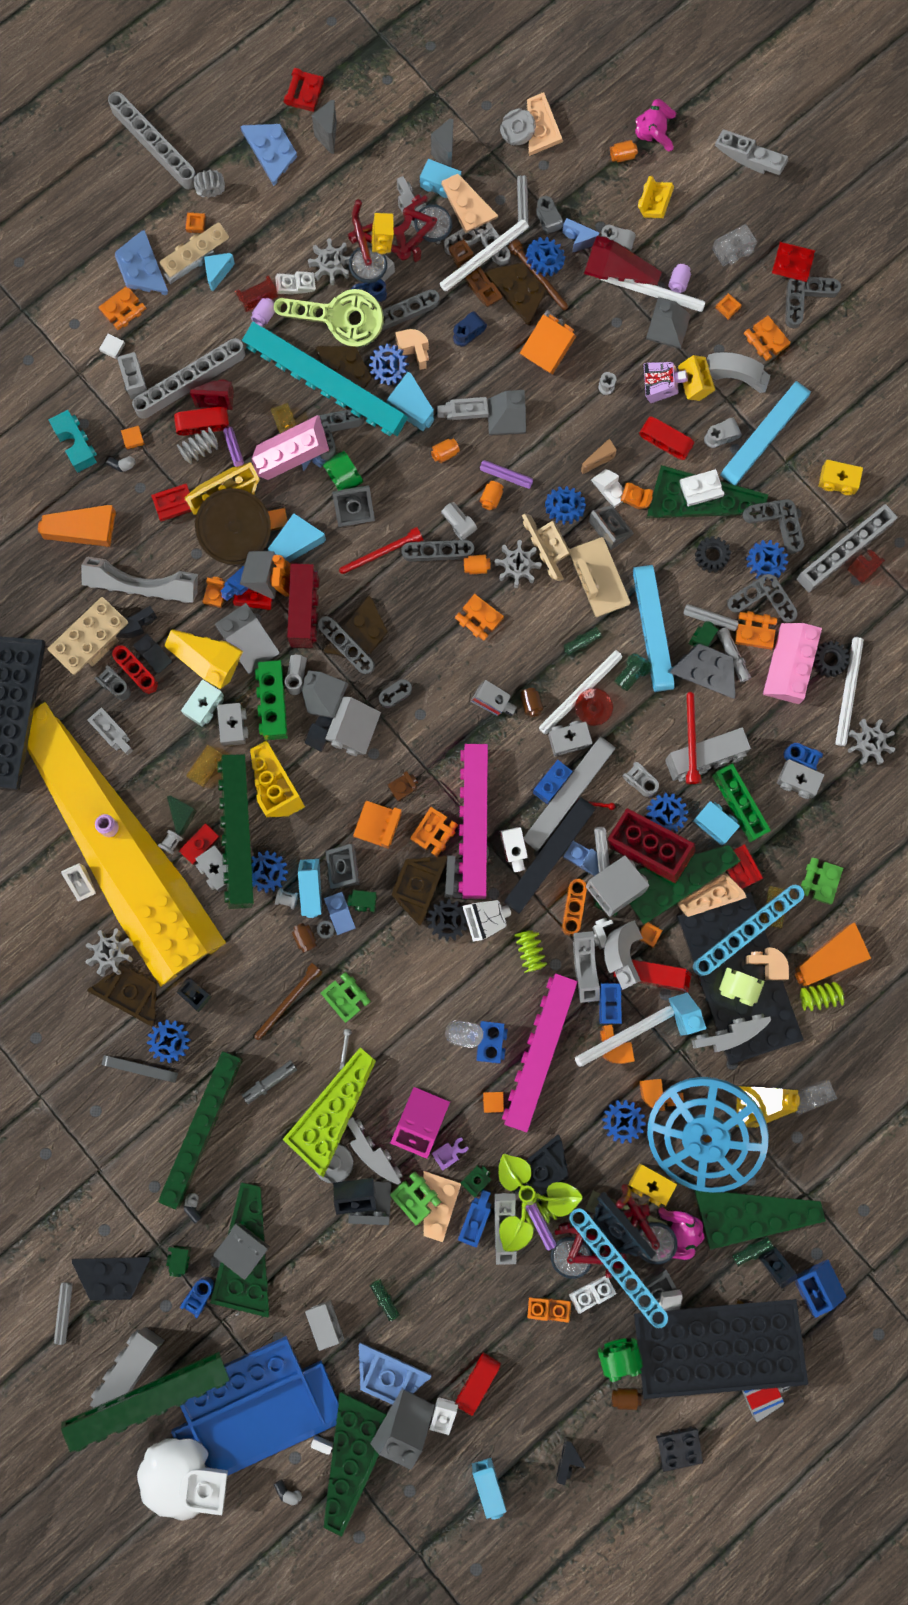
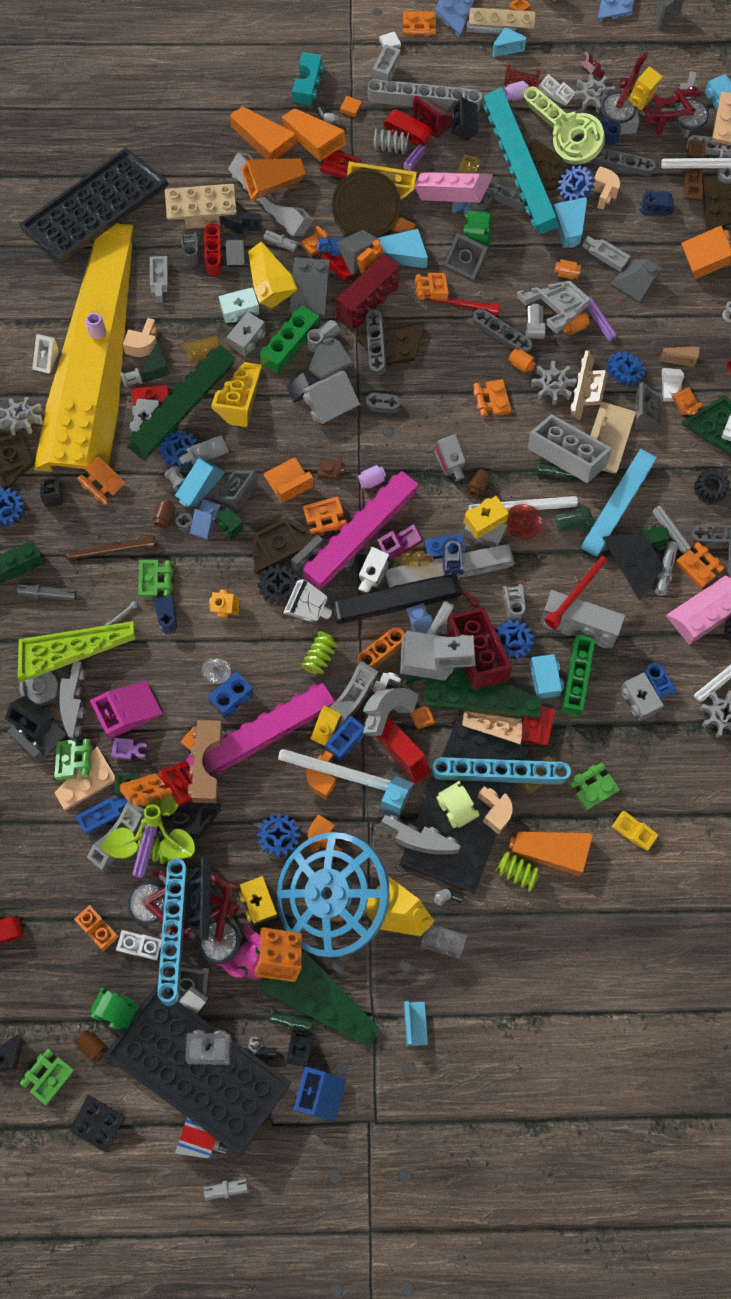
camera: 40 degrees right, 10 degrees down
(127, 492) = (314, 134): none -> orange slope
(127, 565) = (271, 175): none -> orange slope
(152, 804) = (139, 343): none -> light nougat brick
(184, 615) = (281, 241): none -> light grey axle
(228, 946) = (105, 476): none -> orange plate
(243, 375) = (464, 119): none -> black brick
(291, 857) = (206, 450): none -> light grey hinge
(310, 237) = (592, 66): none -> dark red plate
(354, 554) = (433, 285): none -> orange plate
(378, 1016) = (165, 612): none -> dark blue piece
(421, 973) = (224, 603): none -> light orange brick
(442, 766) = (372, 477): none -> lavender brick
(465, 481) = (562, 297): none -> light grey wing
(493, 1175) = (145, 790): none -> orange plate
(514, 804) = (395, 543): none -> magenta brick
(515, 1149) = (174, 779): none -> red plate
(538, 812) = (413, 559): none -> clear yellow plate
(540, 1135) = (208, 736): none -> medium nougat arch
(571, 720) = (479, 524): none -> yellow brick
(571, 789) = (452, 559): none -> dark blue piece
(581, 615) = (569, 448): none -> light grey brick
(587, 1006) = (325, 725): none -> yellow plate
(619, 1449) = (51, 1081): none -> bright green plate
(636, 877) = (454, 652): none -> light grey brick
(707, 1212) = (279, 955): none -> orange bracket
(714, 1339) = (219, 1052): none -> clear brick
(749, 1293) = (259, 1050): none -> arm
(784, 1058) = (446, 894): none -> arm
(812, 1412) = (226, 1189): none -> light grey pin
(842, 1175) = (415, 1023): none -> medium azure panel
(878, 890) = (634, 831): none -> yellow slope

